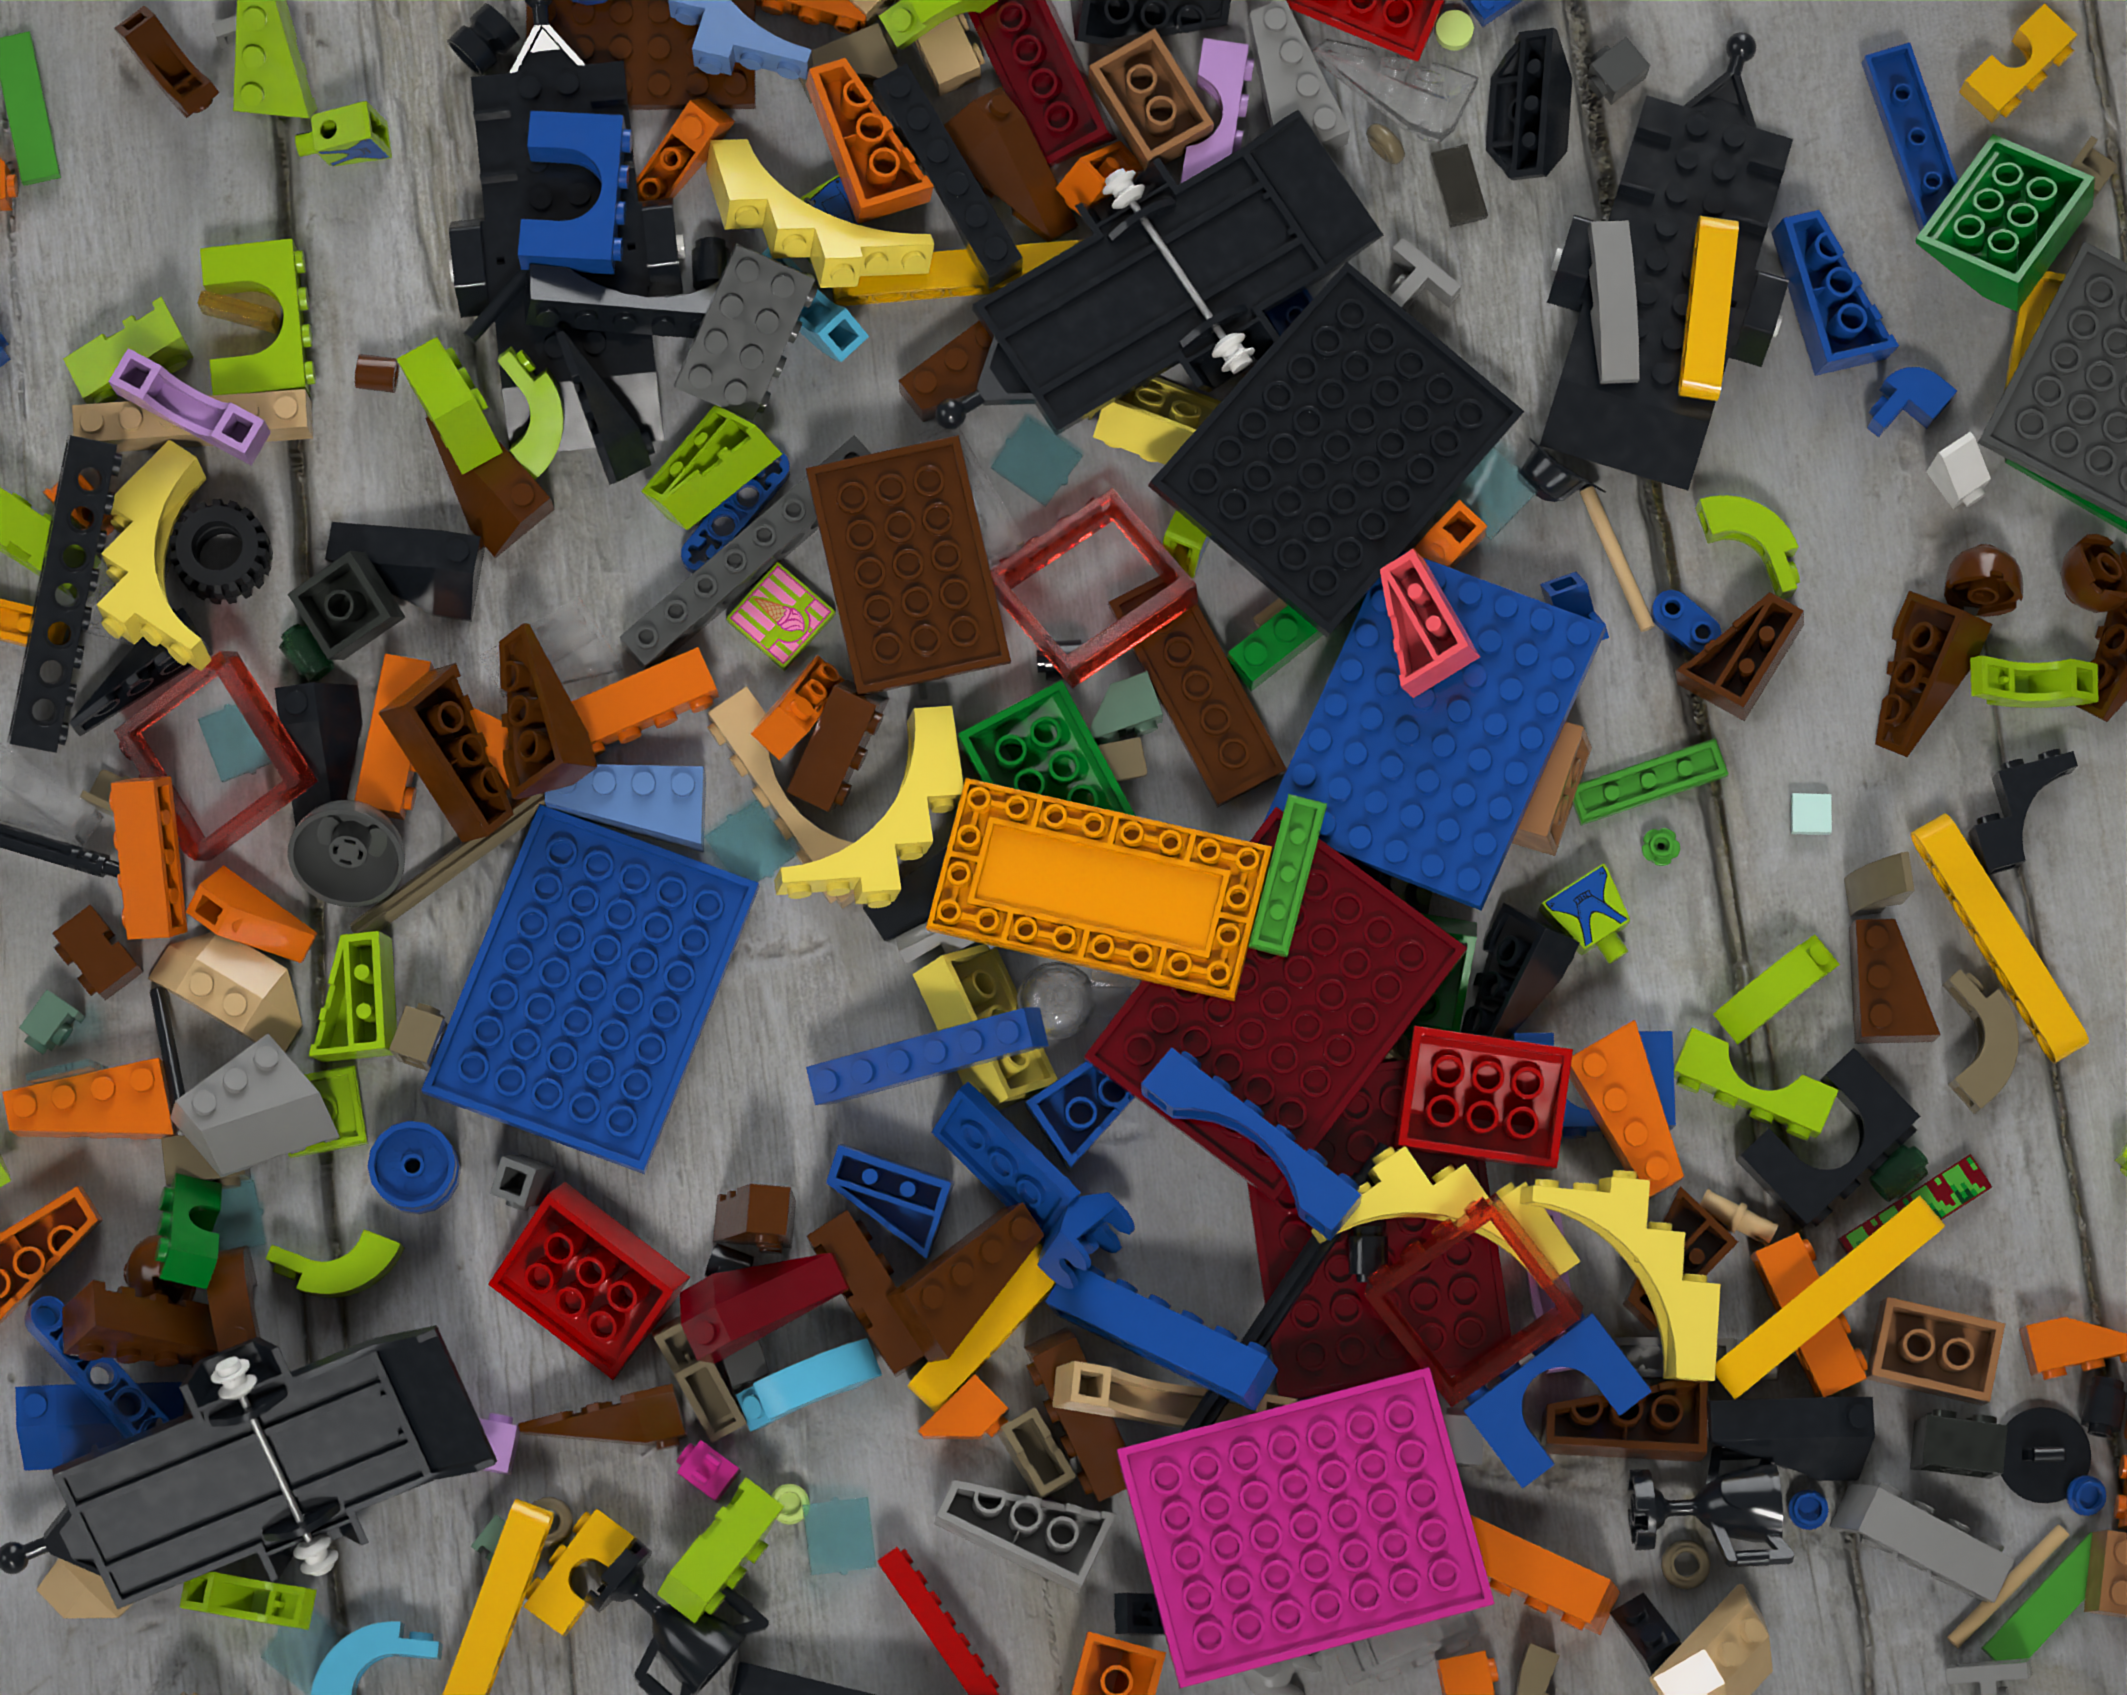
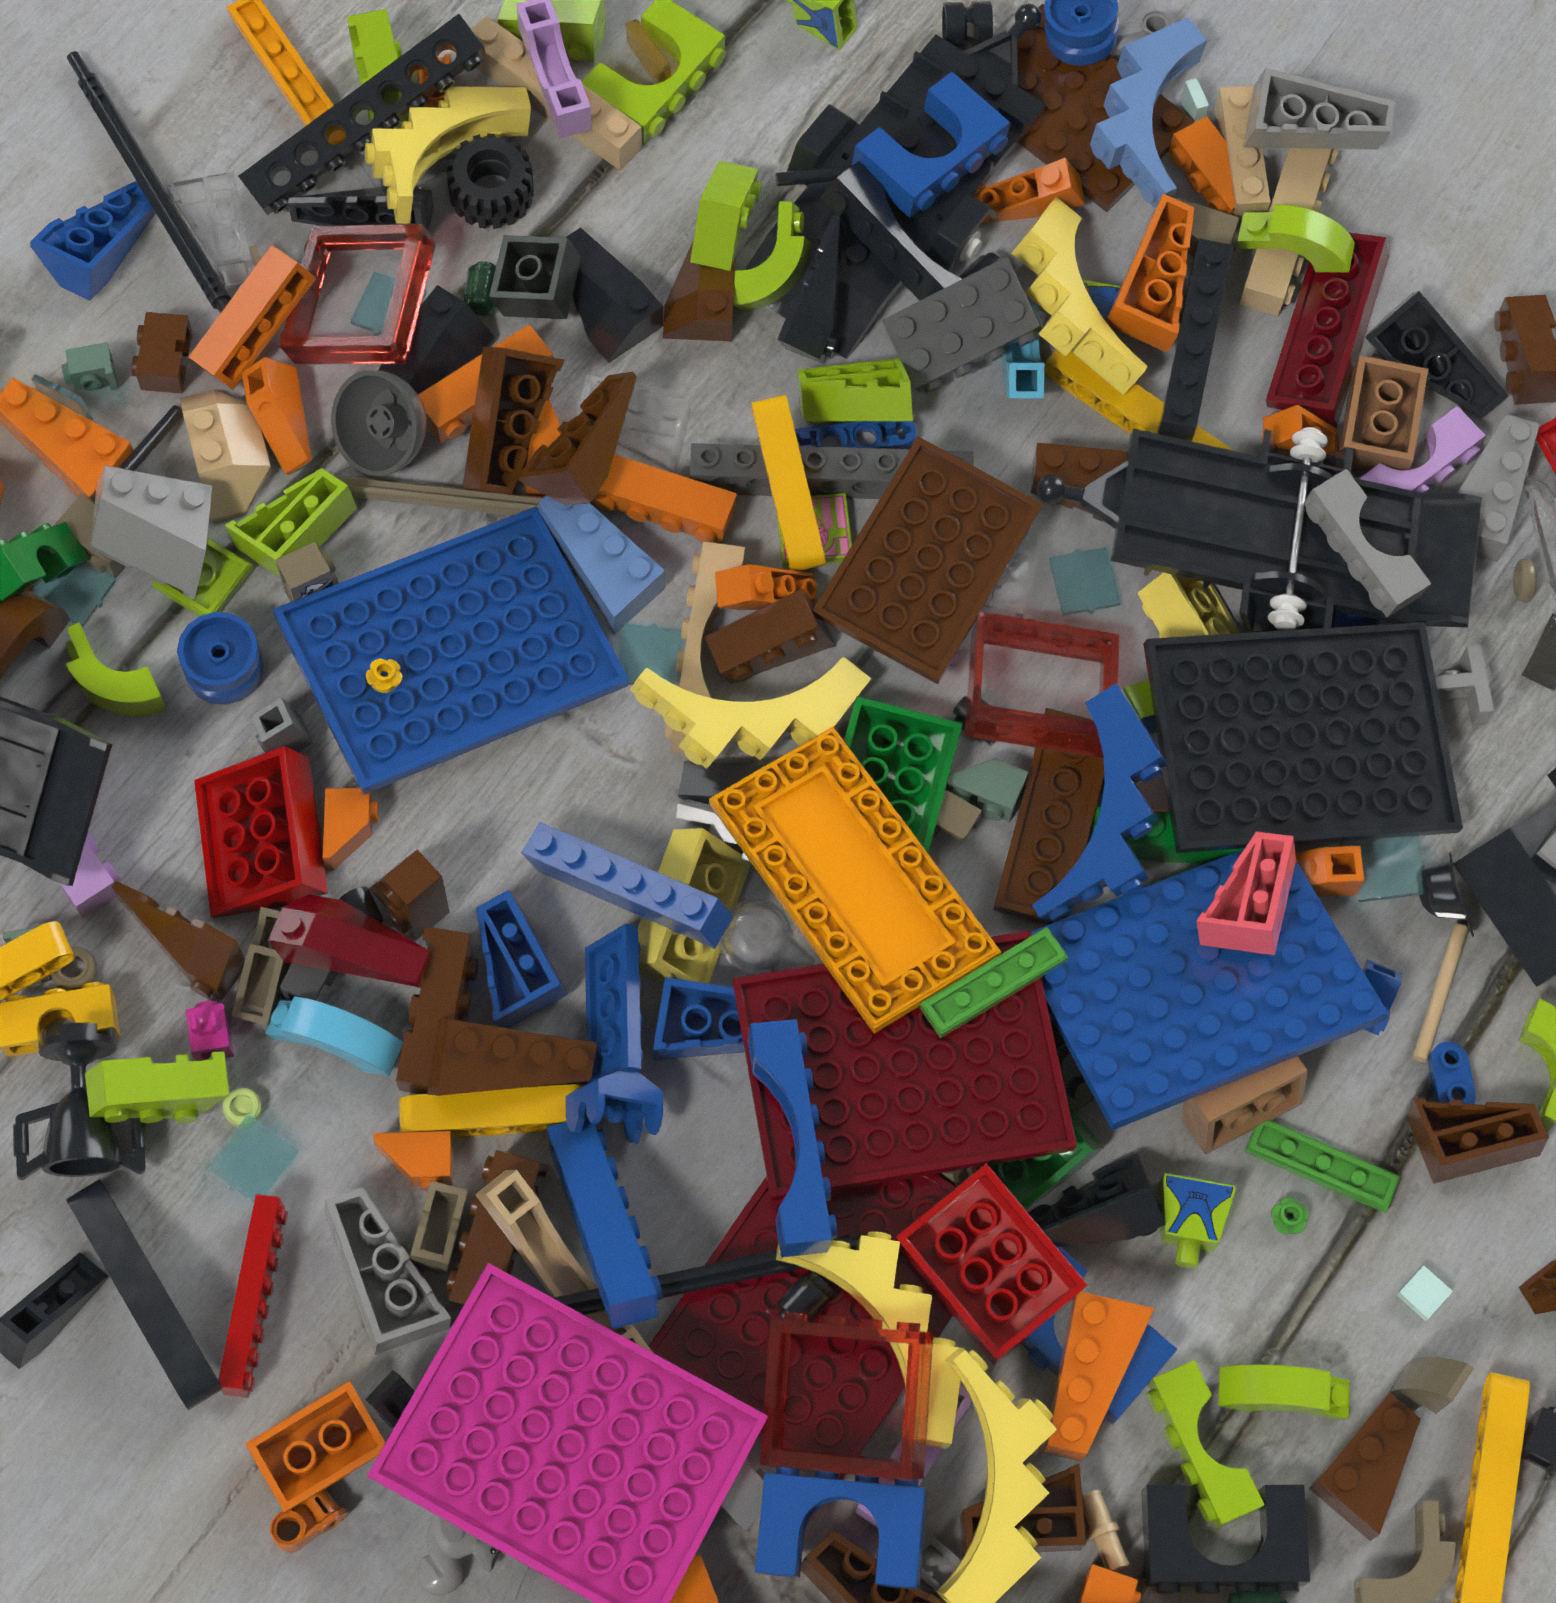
camera: 40 degrees right, 10 degrees down
(377, 373) = (697, 161): reddish brown gear -> none
(568, 1072) = (387, 683): none -> yellow plate
(648, 1206) = (346, 823): none -> orange slope
(735, 602) = (788, 483): none -> yellow beam
(1010, 163) = (1246, 371): reddish brown wedge -> none
(1199, 230) = (1387, 578): none -> light grey arch
(1281, 689) = (1124, 812): none -> blue arch

